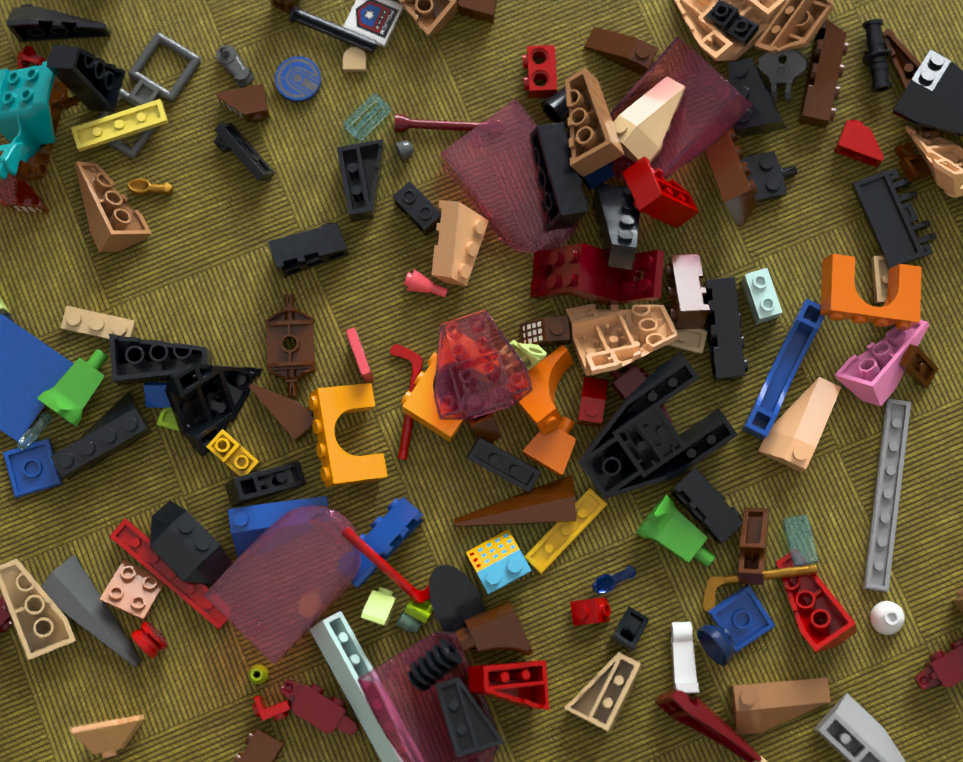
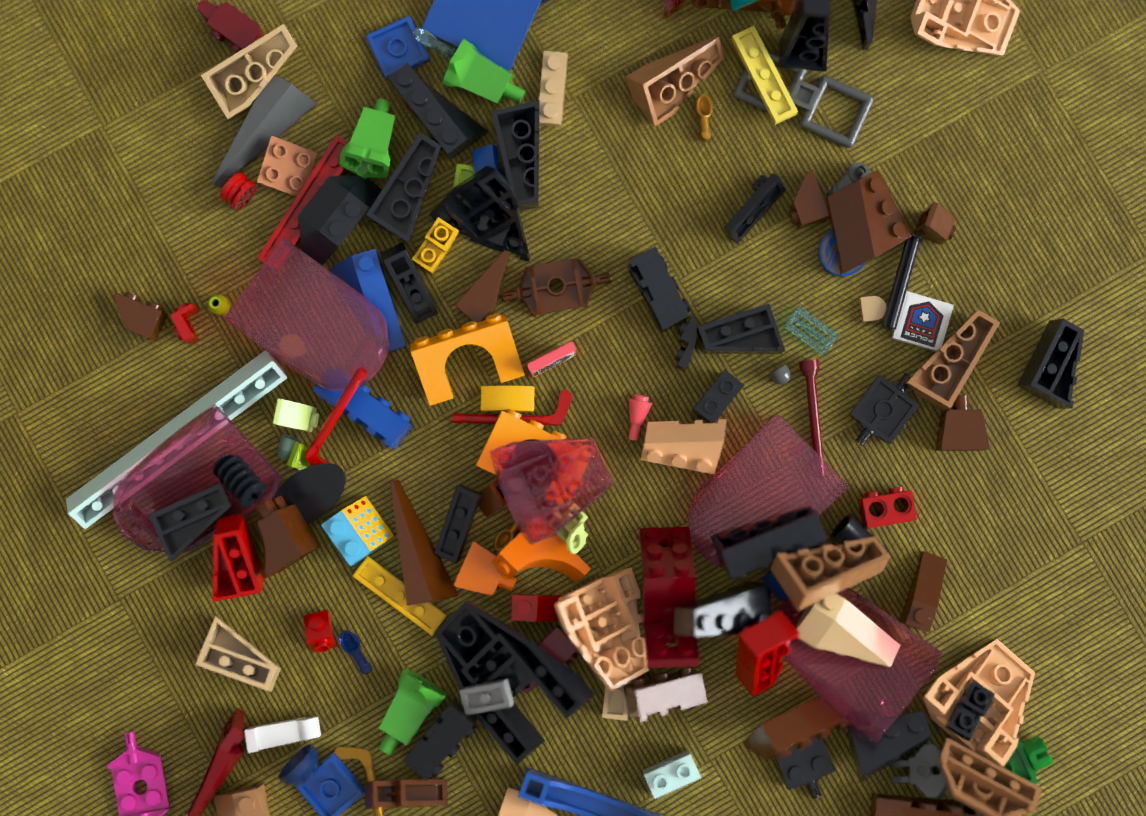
camera: 80 degrees right, 5 degrees up
(108, 735) = (140, 164): light nougat wedge -> none
(126, 502) = (369, 146): none -> bright green piece
(178, 476) = (404, 193): none -> black wedge
(272, 52) = (865, 221): none -> reddish brown wedge
(318, 708) = (190, 370): dark red hinge -> none
(356, 228) = (689, 333): none -> black slope
(389, 405) = (507, 397): none -> yellow slope
(449, 62) = (883, 410): none -> black plate
(521, 421) = (505, 537): none -> pearl gold piece
(546, 331) = (603, 548): reddish brown slope -> none
(629, 629) = (305, 673): black slope -> none
(670, 453) = (486, 697): none -> light grey plate
(724, 330) = (627, 738): black wedge -> none

